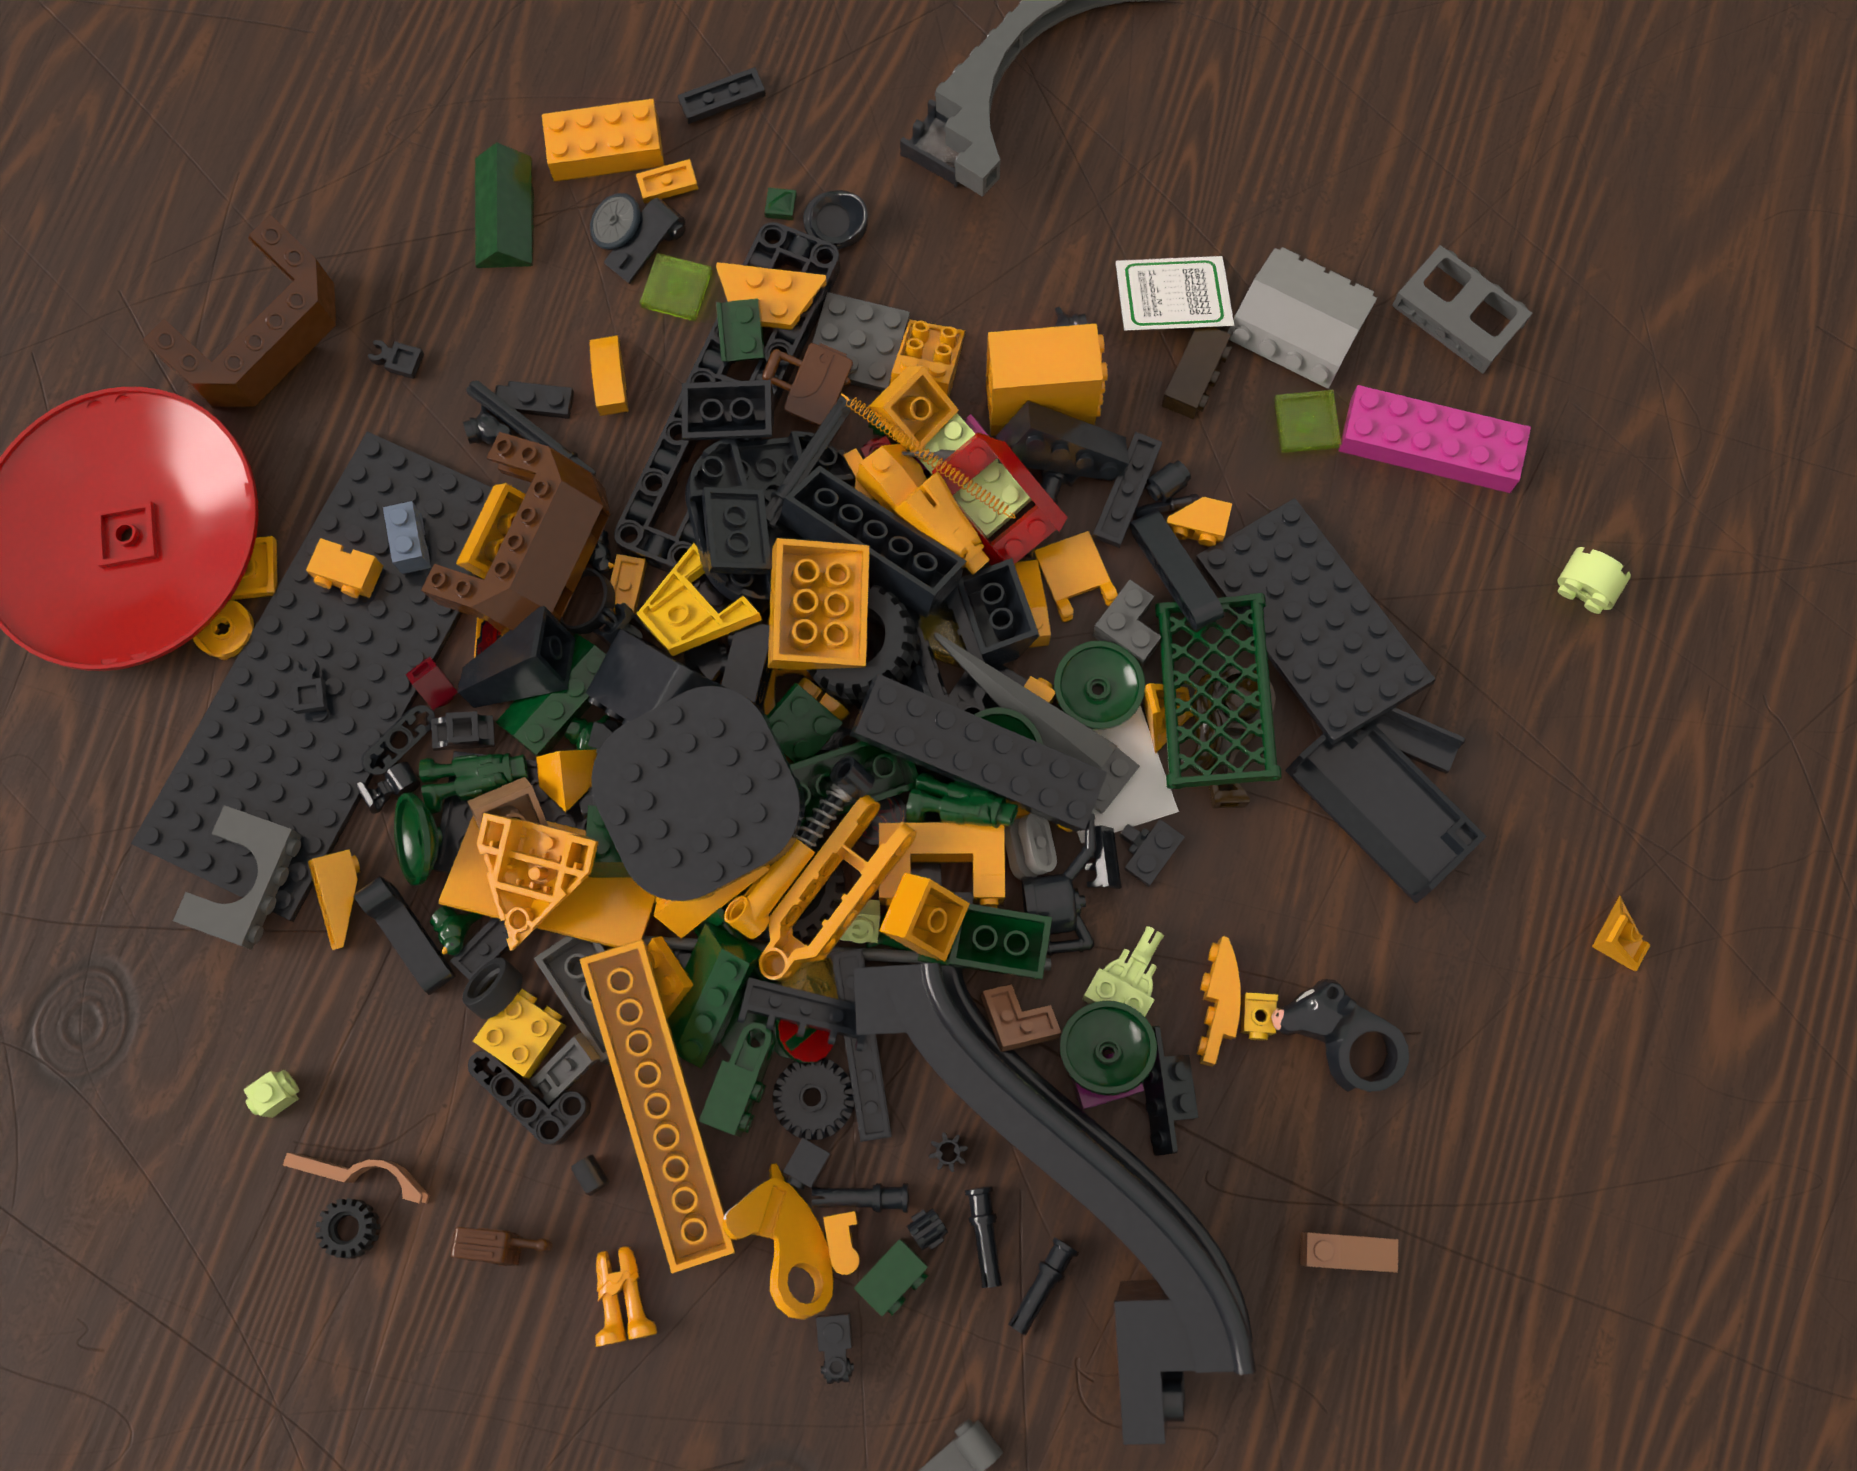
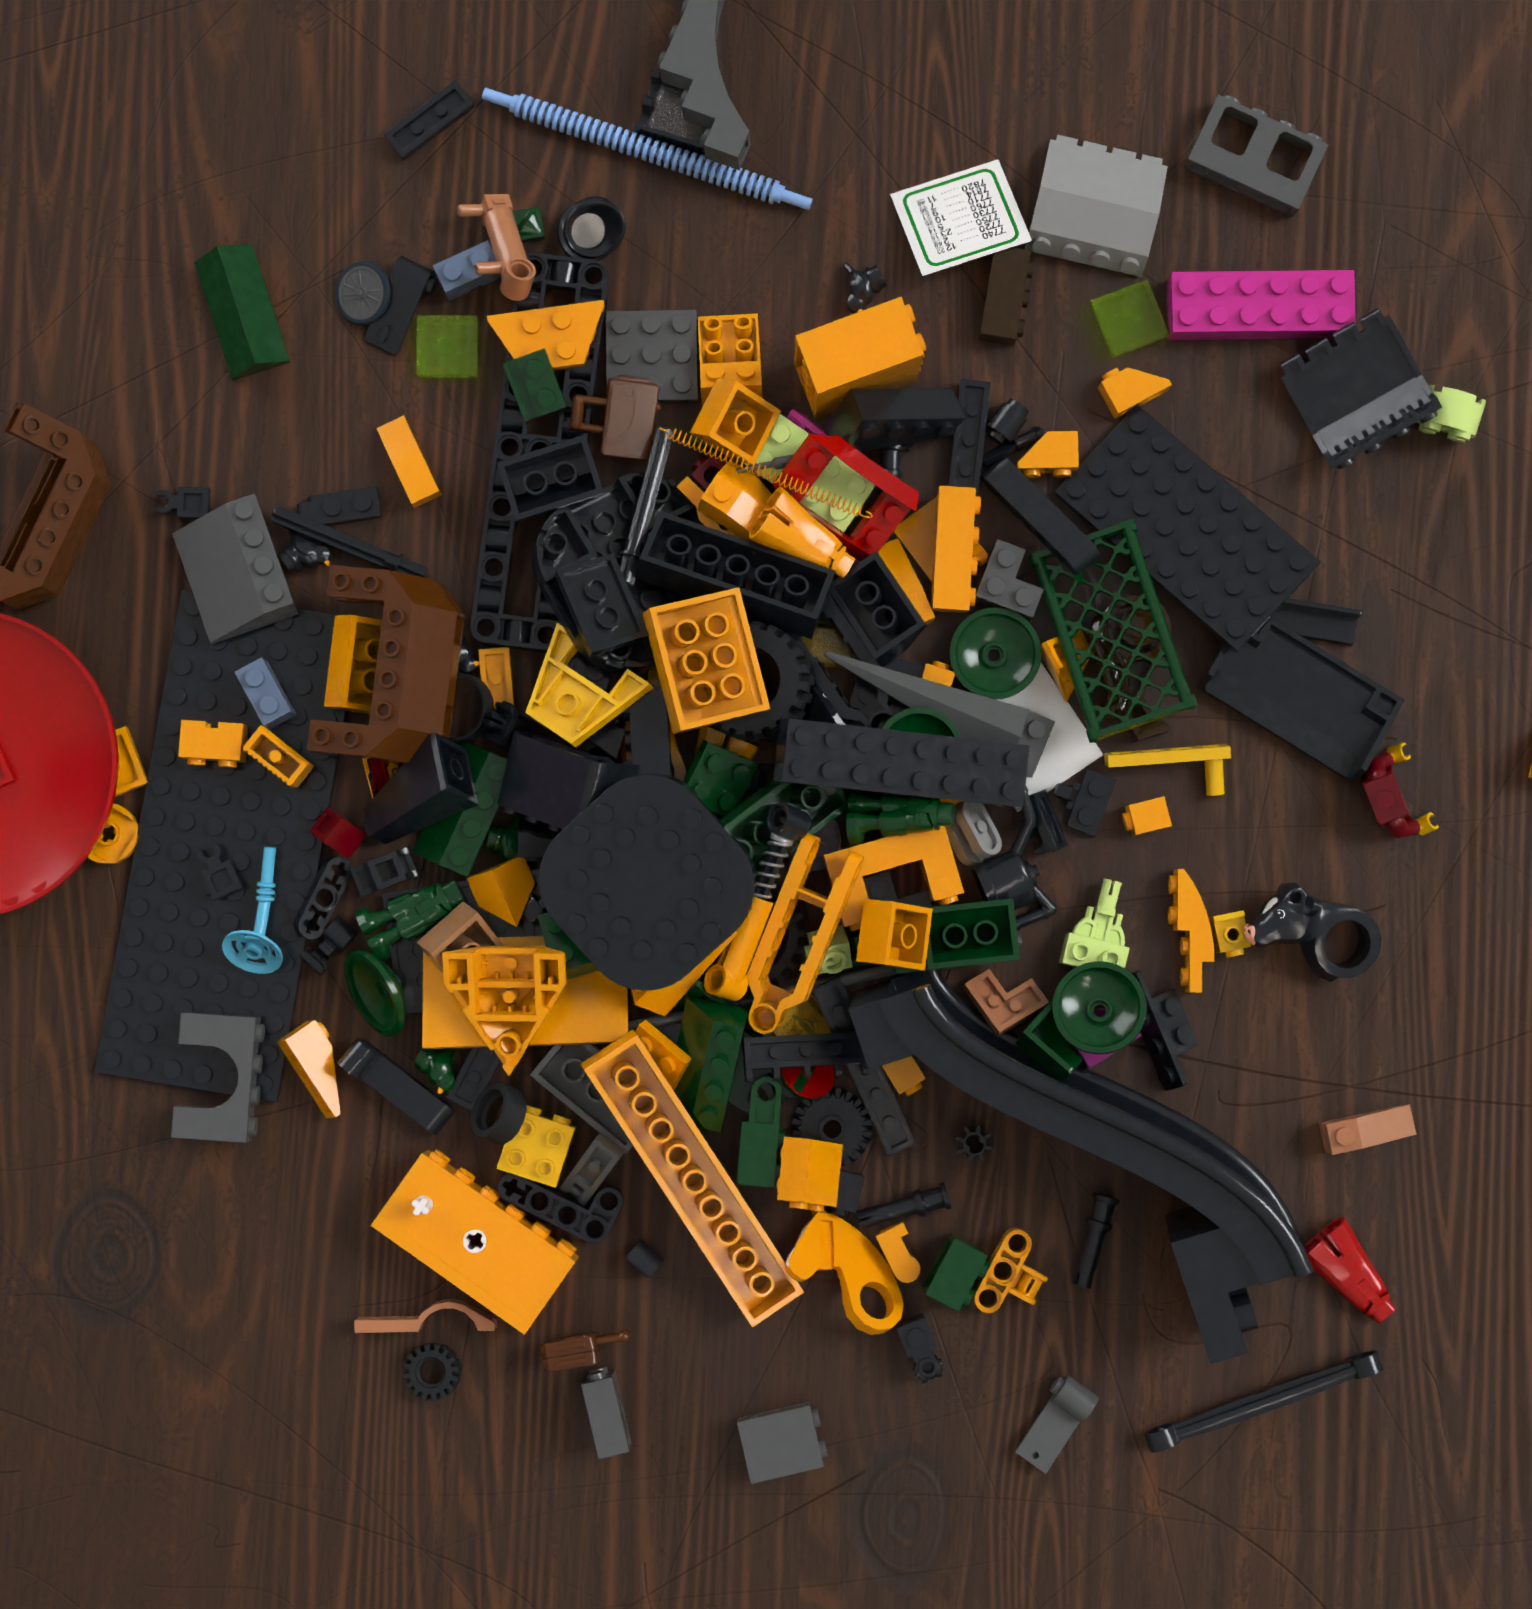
camera: 20 degrees left, 10 degrees up
(271, 1094) = (318, 1269): yellowish green brick -> none
(321, 759) = (256, 939): none -> medium azure dish
(397, 596) = (278, 757): none -> light orange brick
(420, 424) = (234, 570): none -> dark grey slope
(430, 1107) = (437, 1219): none -> light orange piece
(501, 1319) = (606, 1412): none -> dark grey brick
(602, 140) = (321, 206): light orange brick -> none
(609, 1287) = (694, 1357): light orange piece -> none
(667, 181) = (402, 233): light orange plate -> none
(668, 1404) = (781, 1442): none -> dark grey brick
(714, 225) = (458, 272): none -> sand blue brick
(754, 209) = (511, 260): none -> nougat piece
(774, 1132) = (809, 1173): none -> light orange brick
(898, 1061) = (904, 1075): none -> light orange brick
(908, 167) = (541, 113): none -> light blue hose
(927, 1229) = (974, 1219): black gear -> none
(951, 1306) = (1018, 1278): none -> light orange piece
(982, 1220) = (1023, 1196): black pin -> none
(1046, 1071) = (1044, 1045): none -> dark green panel
(1085, 578) = (954, 549): none -> light orange brick
(1205, 879) = (1146, 816): none -> light orange brick
(1283, 837) = (1211, 754): none -> yellow piece
(1291, 1387) = (1346, 1267): none -> red piece
(1292, 480) = (1130, 387): none -> light orange slope
(1448, 929) = (1387, 797): none -> dark red torso
(1509, 532) = (1359, 389): none -> black hinge

